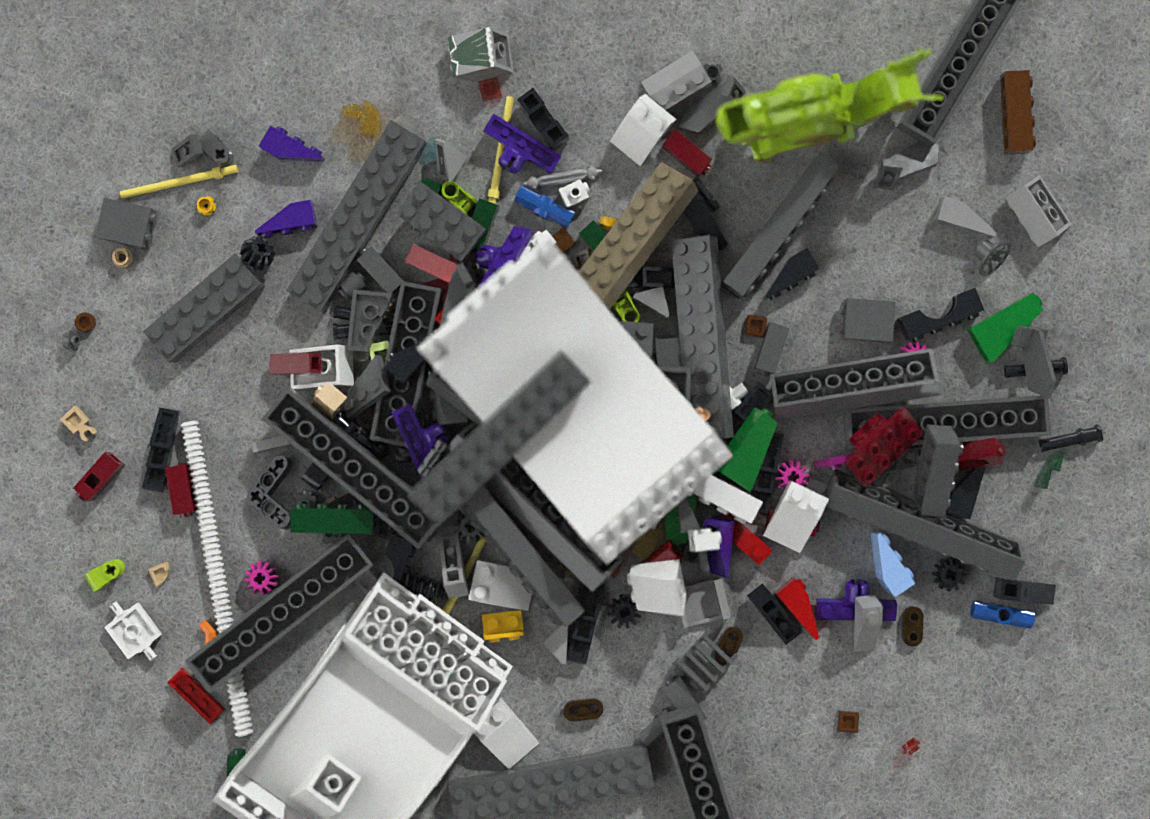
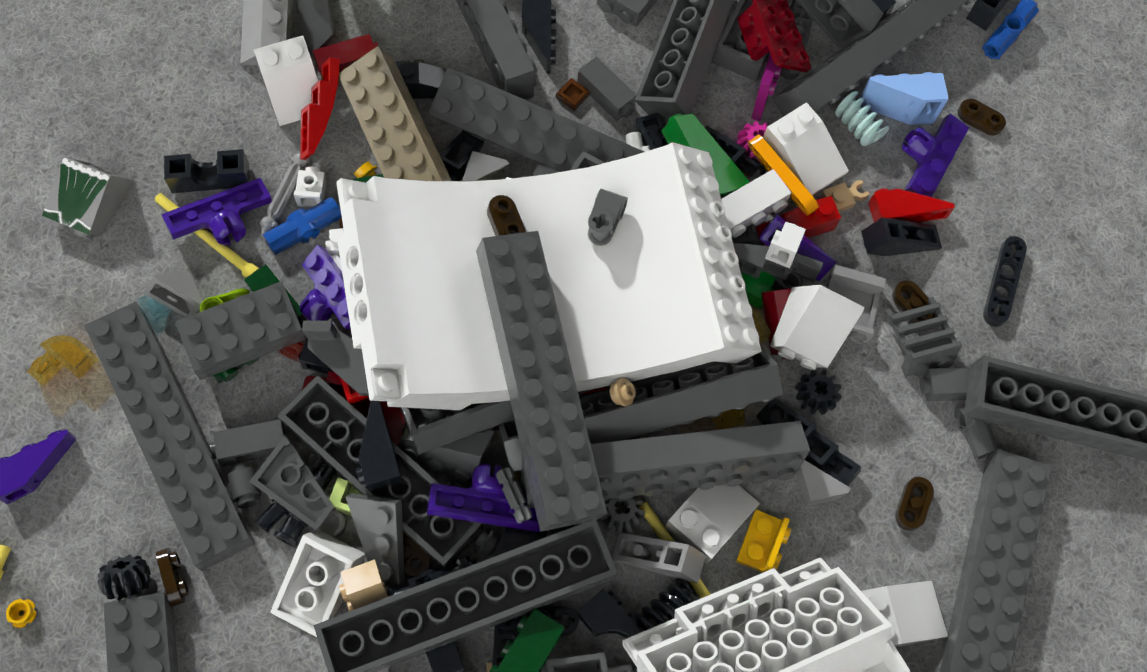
camera: 70 degrees left, 20 degrees down
(270, 286) = (175, 588): none -> dark brown plate
(293, 217) = (113, 511): dark purple slope -> none
(295, 363) = (291, 608): dark red brick -> none
(431, 263) = (282, 376): tile -> none
(490, 89) = (133, 211): clear red tile -> none
(530, 490) = (622, 392): none -> tan plate
(593, 352) = (506, 219): none -> dark brown plate
(622, 167) = (317, 113): none -> red slope
(639, 415) = (605, 214): none -> dark grey piece
(766, 509) = (770, 161): none -> light orange beam
(784, 699) = (1002, 280): none -> black beam
(785, 556) = (844, 196): none -> tan plate
(848, 721) = (1059, 231): reddish brown tile -> none
(853, 541) = (859, 120): none -> light aqua piece
(867, 622) = (960, 146): light grey slope -> none
(911, 746) = (1116, 183): clear red plate -> none
(945, 582) = (943, 53): black gear -> none

